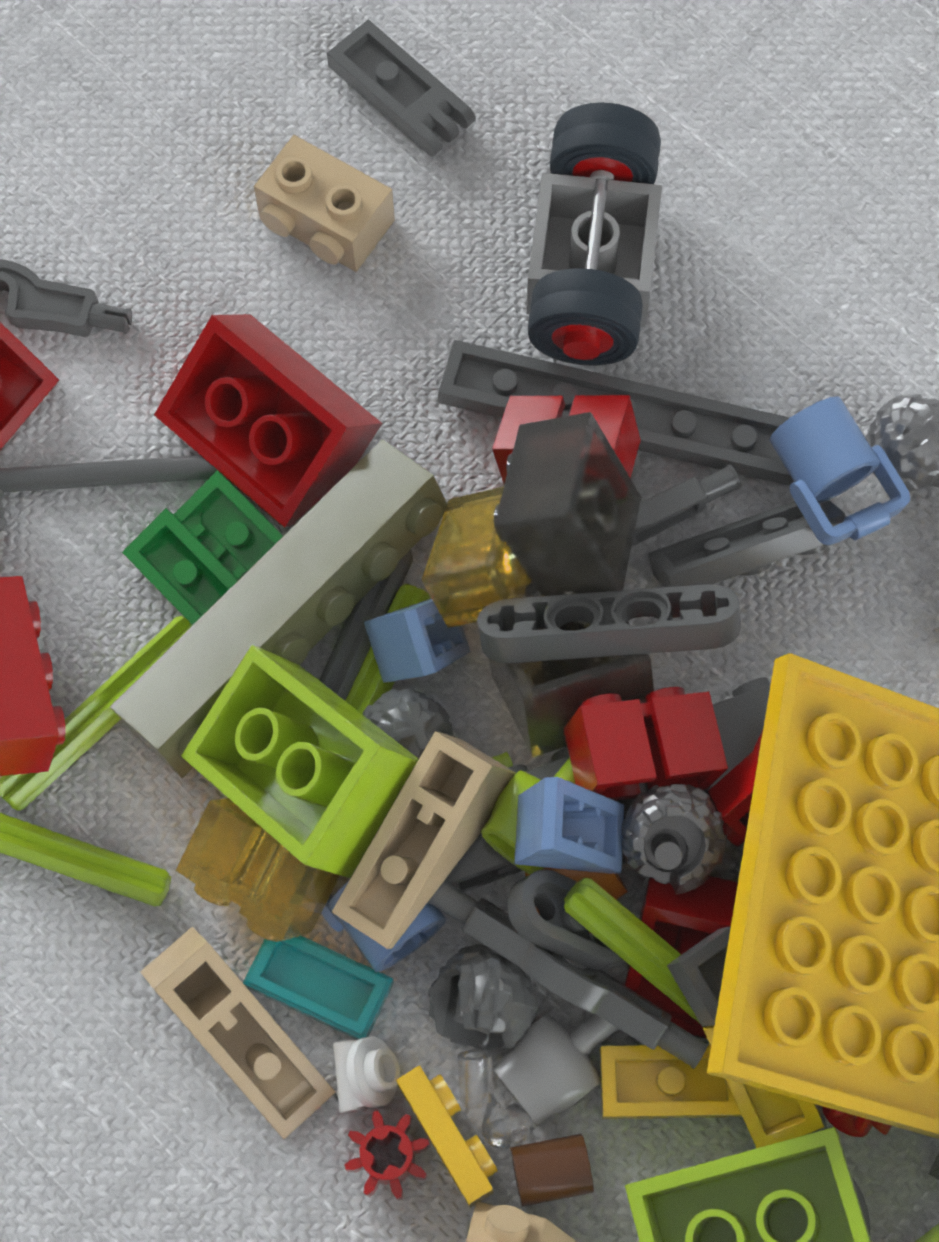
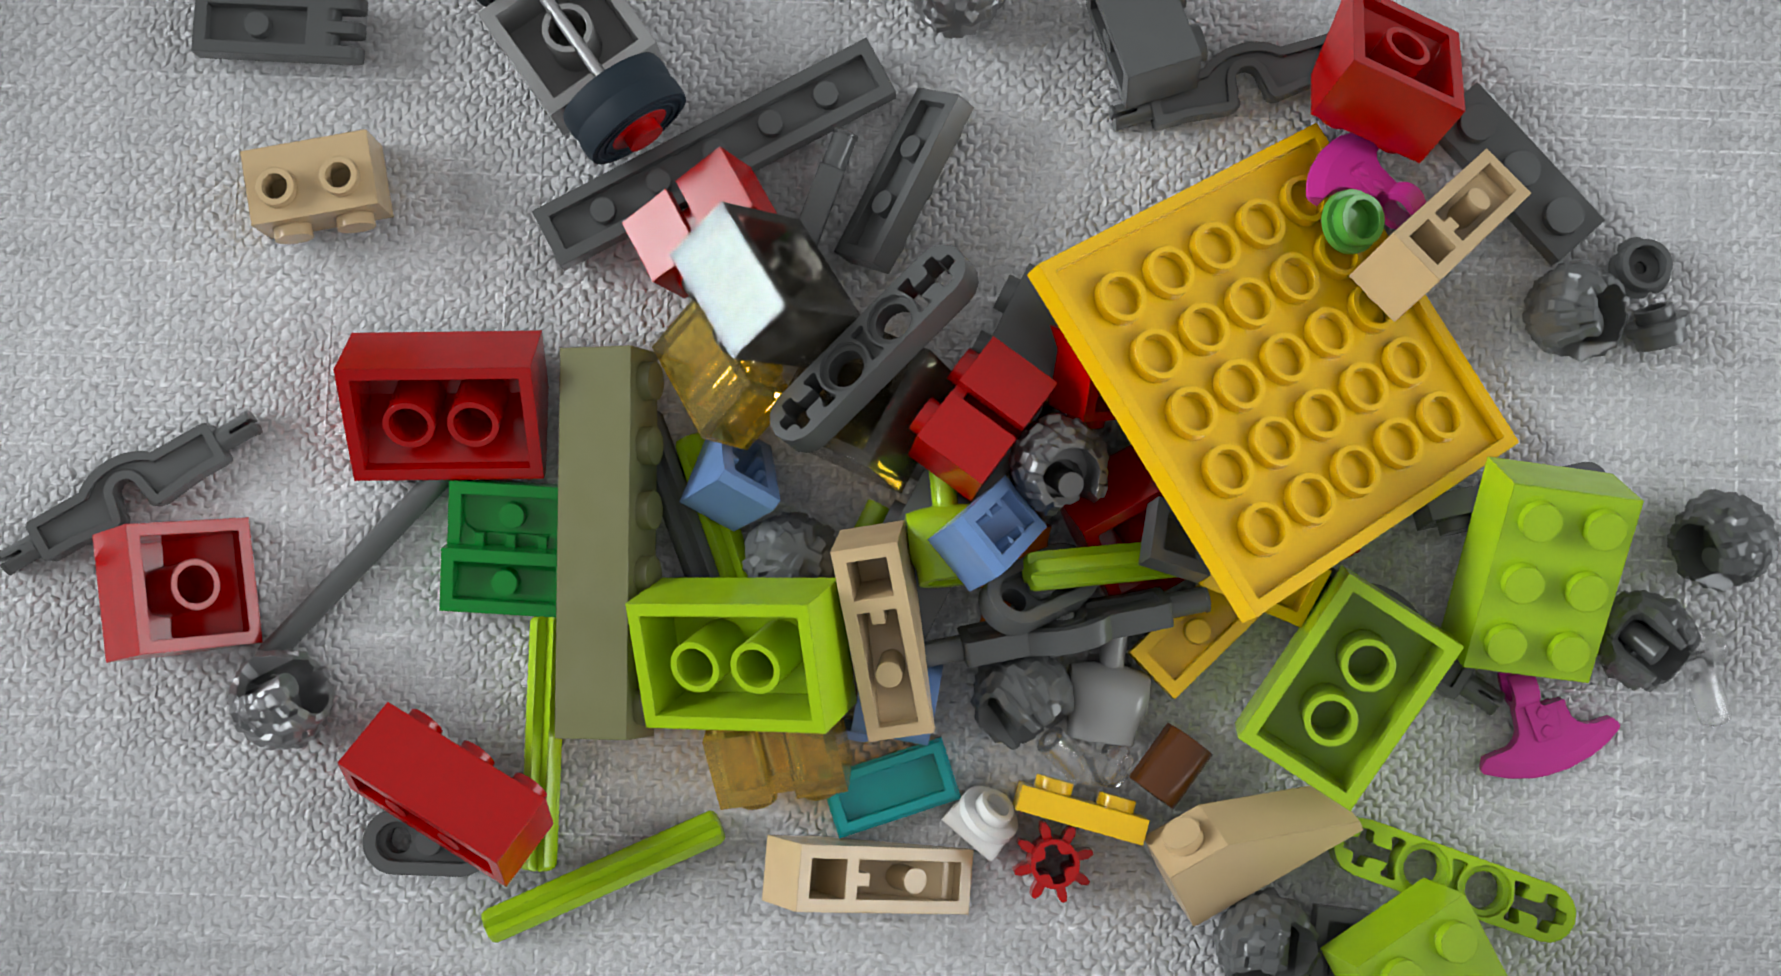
camera: 45 degrees left, 15 degrees up
(828, 457) = (905, 61): medium blue piece -> none

